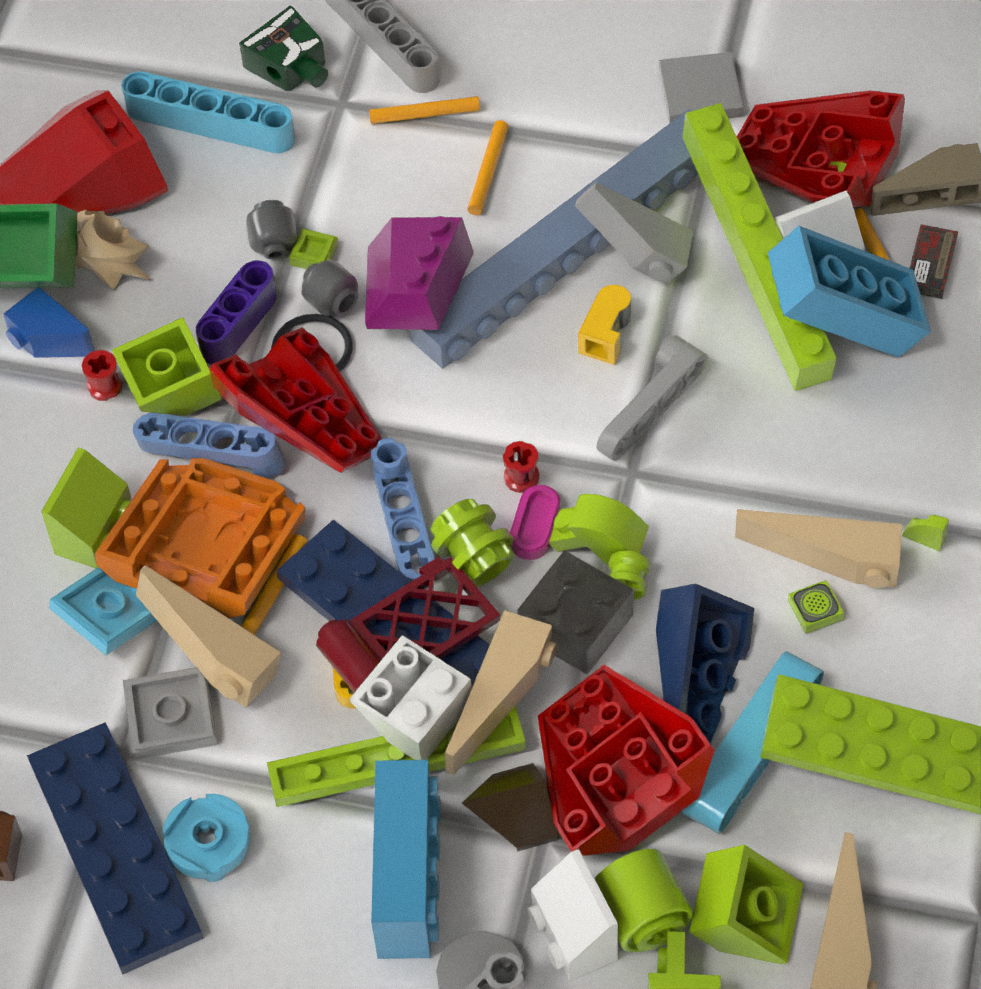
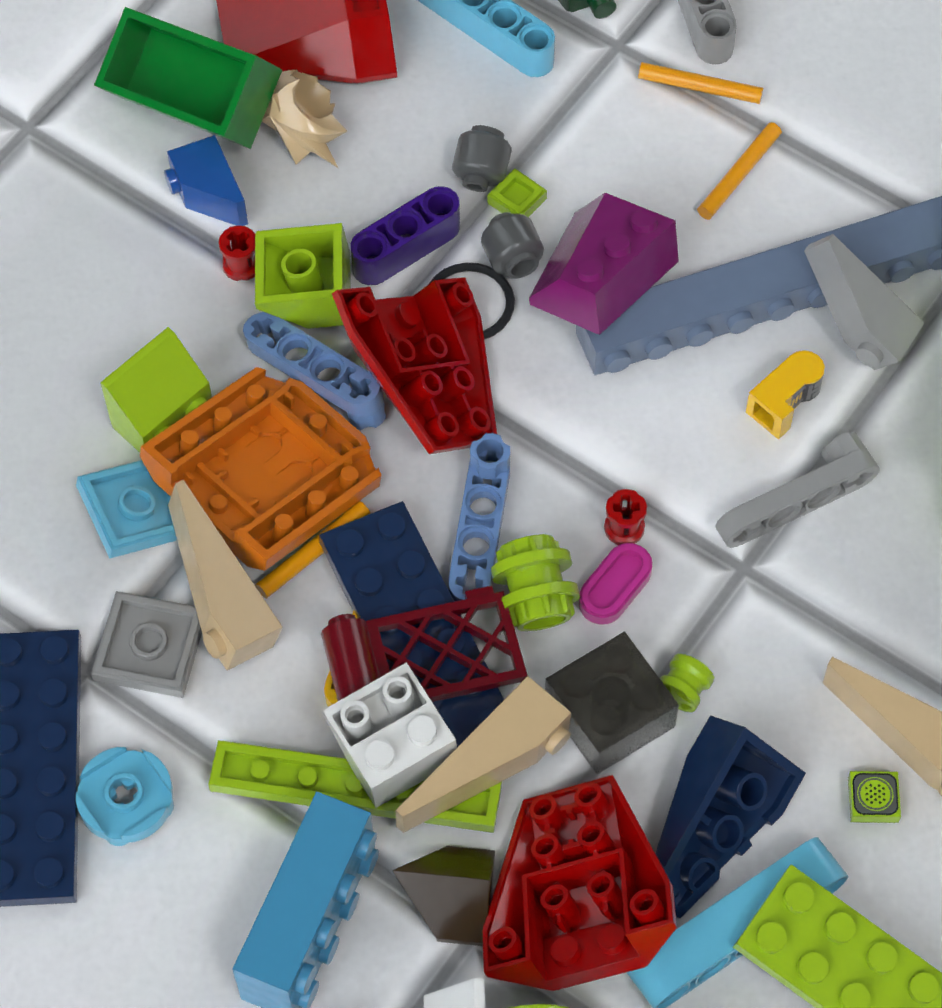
camera: 20 degrees right, 5 degrees up
(600, 525) = (677, 617): lime brick -> none

